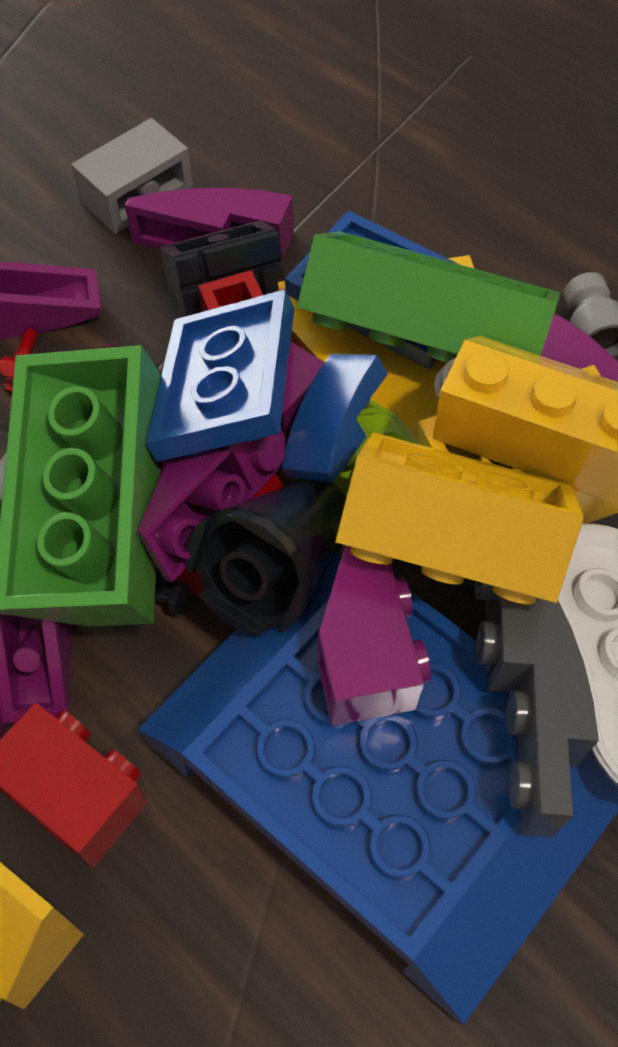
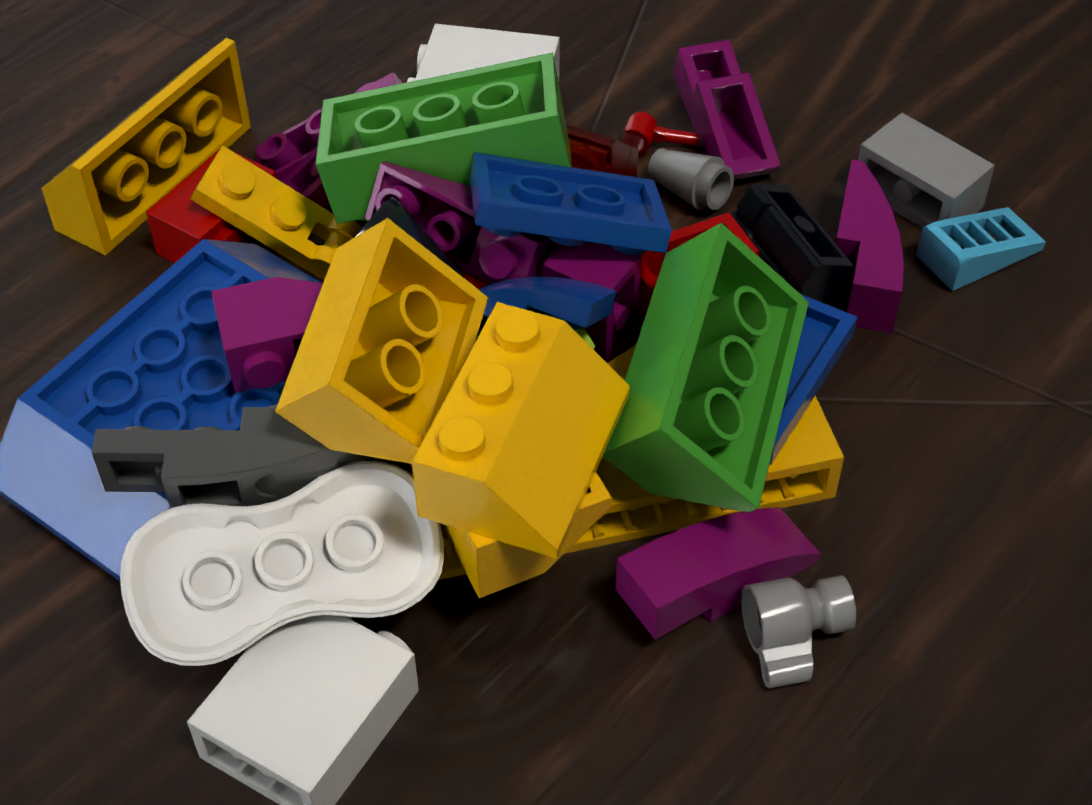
camera: 85 degrees right, 10 degrees down
(98, 707) = (271, 212): none -> yellow plate
(100, 326) = (693, 177): none -> light grey cone
(216, 158) = (956, 267): none -> medium azure slope

